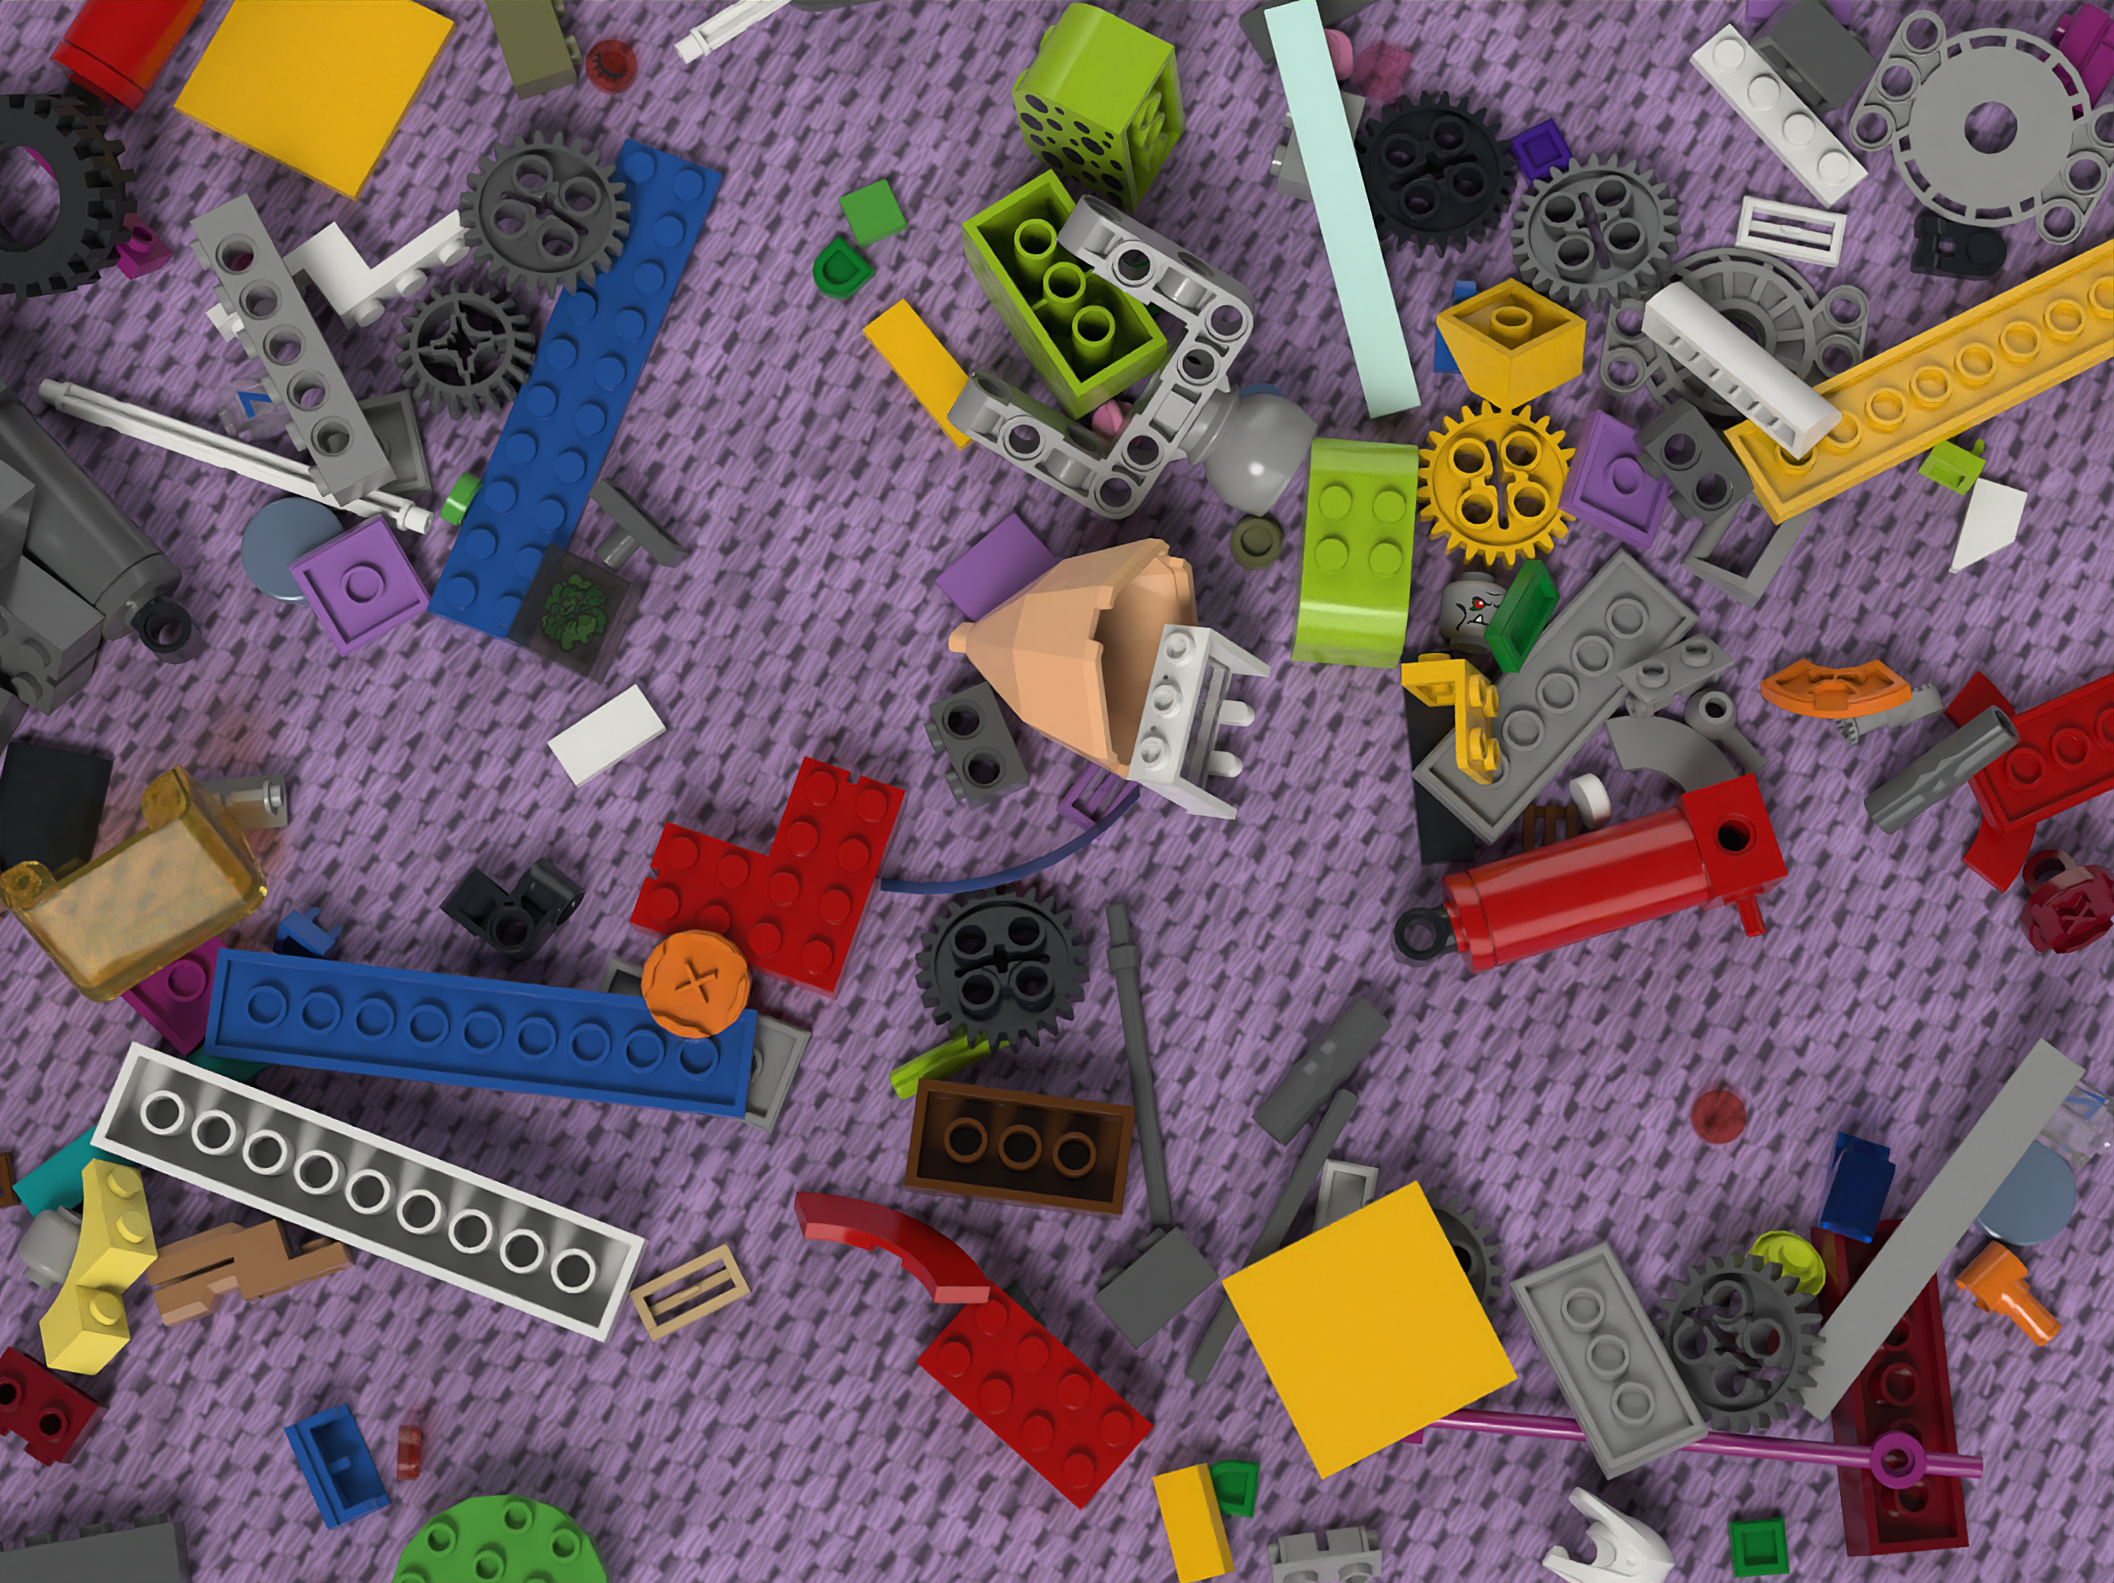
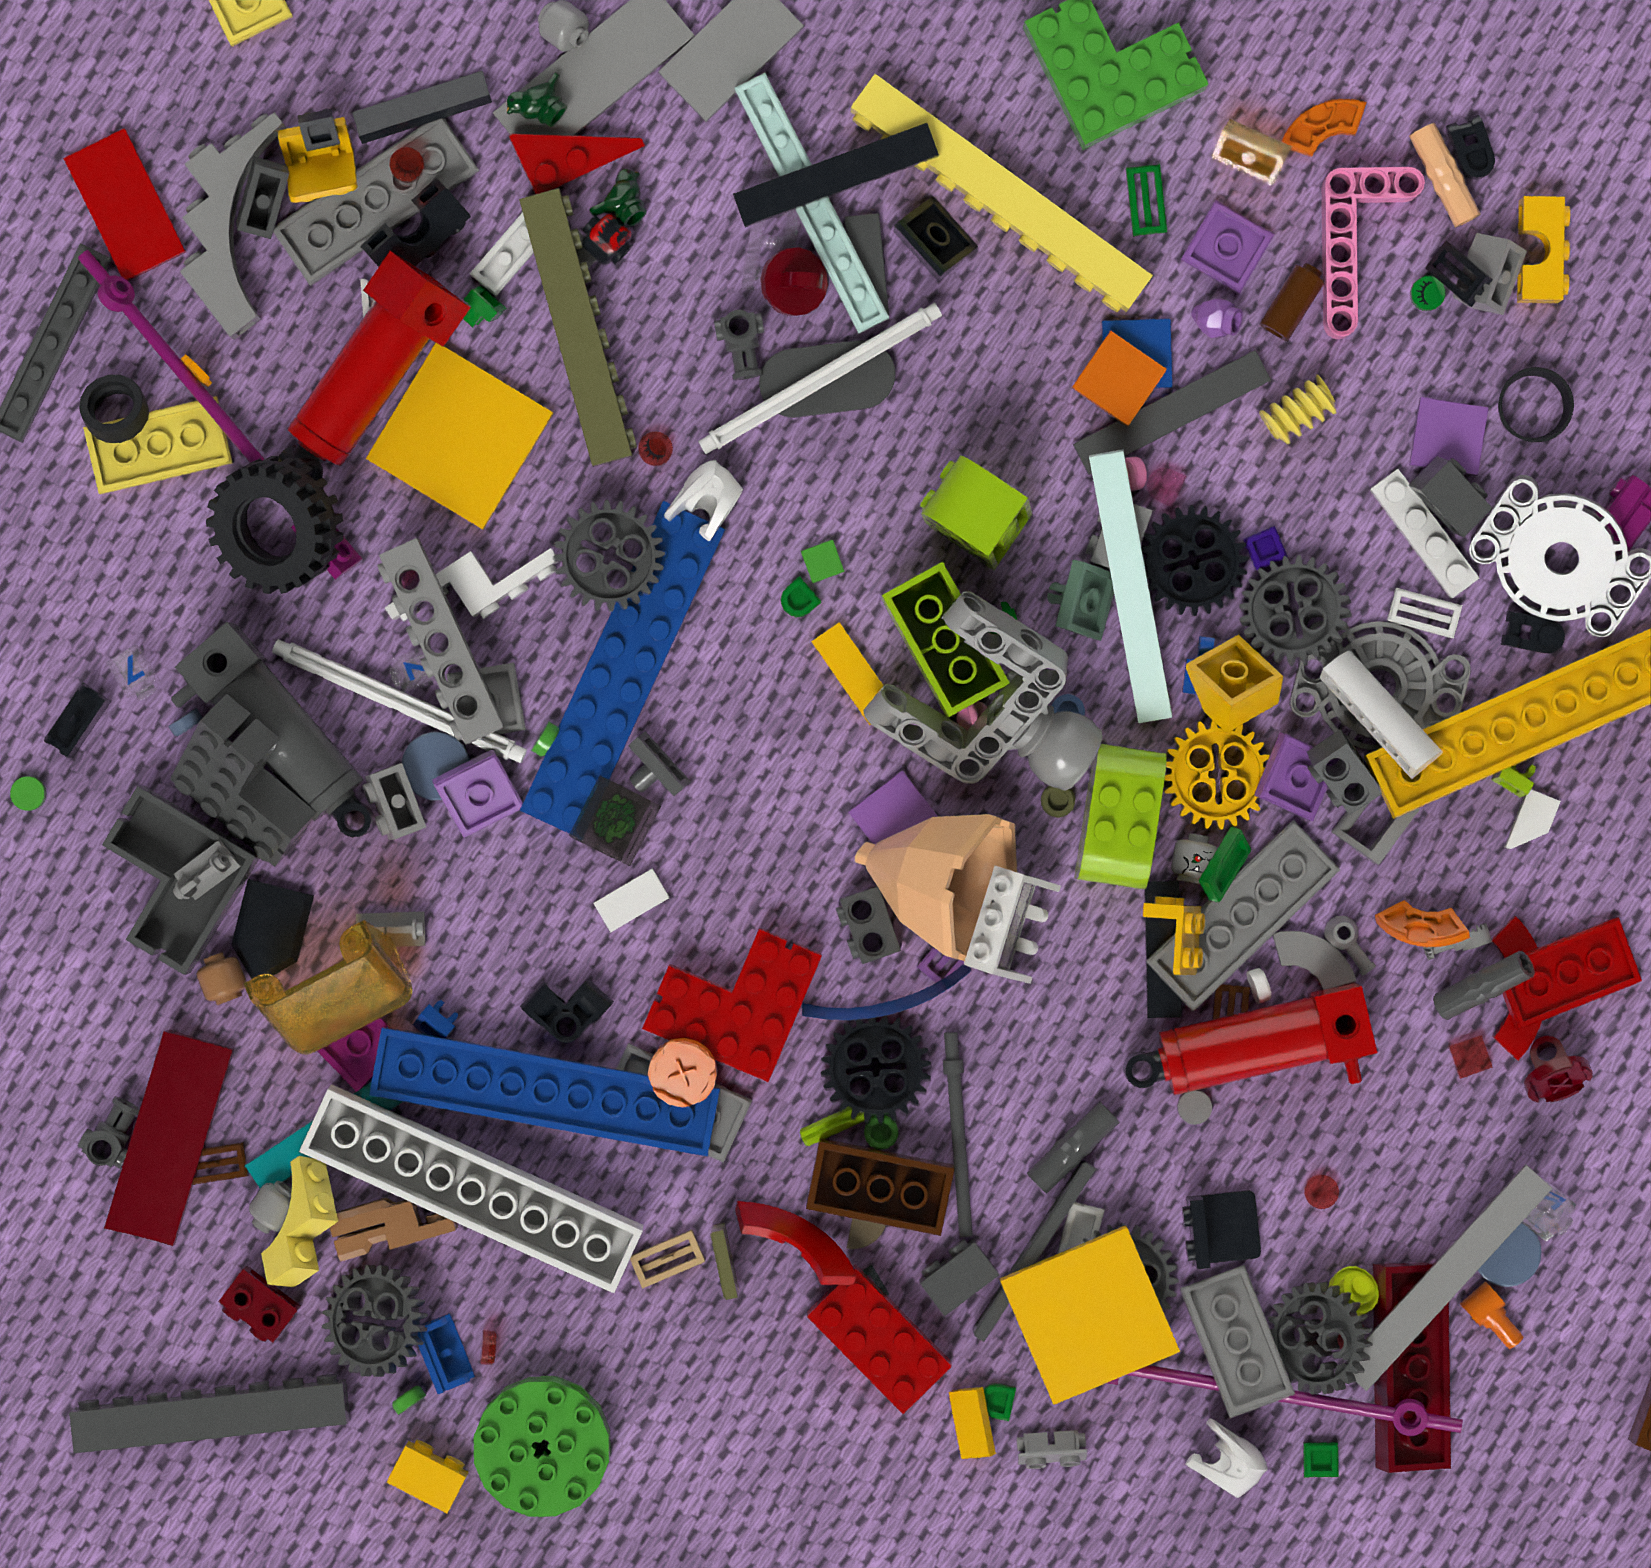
camera: 10 degrees right, 10 degrees up
(217, 1469) = (369, 1352): none -> dark grey gear
(230, 602) = (394, 802): none -> light grey brick
(283, 1546) = (408, 1399): none -> bright green tile
(445, 355) = (554, 663): dark grey gear -> none
(692, 115) = (710, 489): none -> white helmet
(779, 1281) = (724, 1261): none -> olive tile
(1001, 1227) = (863, 1233): none -> dark tan tile
(1018, 1070) = (881, 1135): none -> bright green tile
(1274, 235) = (1083, 600): none -> sand green tile
(1506, 997) = (1194, 1107): none -> light grey tile
(1566, 1183) = (1221, 1228): none -> black bracket
(1677, 670) = (1319, 907): light grey hinge -> none
(1855, 1187) = (1402, 1244): clear blue slope -> none
(1930, 891) = (1470, 1056): none -> clear red tile

